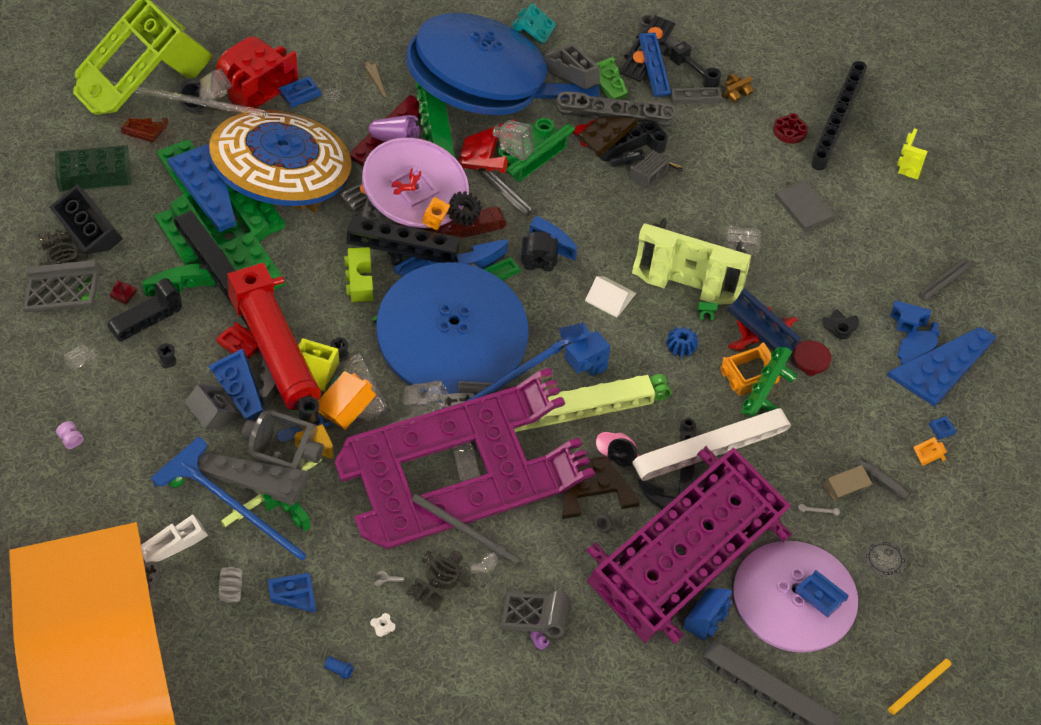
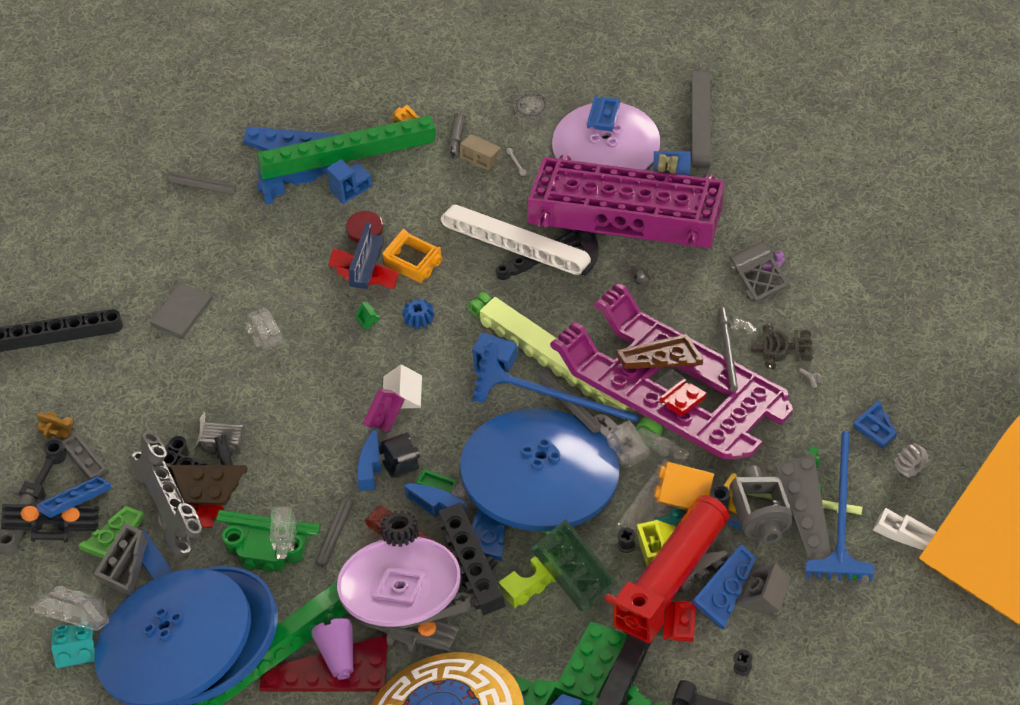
camera: 115 degrees left, 0 degrees up
(68, 433) = (882, 676): lavender wheel -> none
(336, 288) = (573, 565): none -> clear green brick
(343, 669) = (908, 355): blue pin -> none
(382, 630) = (851, 360): white plate -> none
(412, 186) = (397, 577): red arm -> none
(429, 446) = (682, 397): none -> plate
(435, 213) = (429, 538): light orange brick -> none
(479, 151) = (297, 579): red wing -> none
(489, 466) = (661, 353): none -> reddish brown wing
(558, 31) = (73, 607): none -> clear wedge
(594, 262) = (384, 410): none -> magenta bracket
(604, 481) = (599, 288): dark brown wing -> none
(617, 448) = (566, 293): black hair -> none
(691, 263) = (338, 356): yellowish green piece -> none
(707, 591) = (672, 163): none -> olive wheel
(763, 386) = (427, 229): green plate -> none
(790, 129) = (81, 364): dark red tile -> none
(840, 323) = (309, 227): black plate -> none
(872, 365) = (348, 181): none -> blue brick
(912, 381) = (346, 147): none -> green brick
(913, 158) = (65, 256): neon yellow bracket -> none
(921, 685) = (624, 49): yellow bar -> none
(942, 427) = (371, 121): blue tile -> none

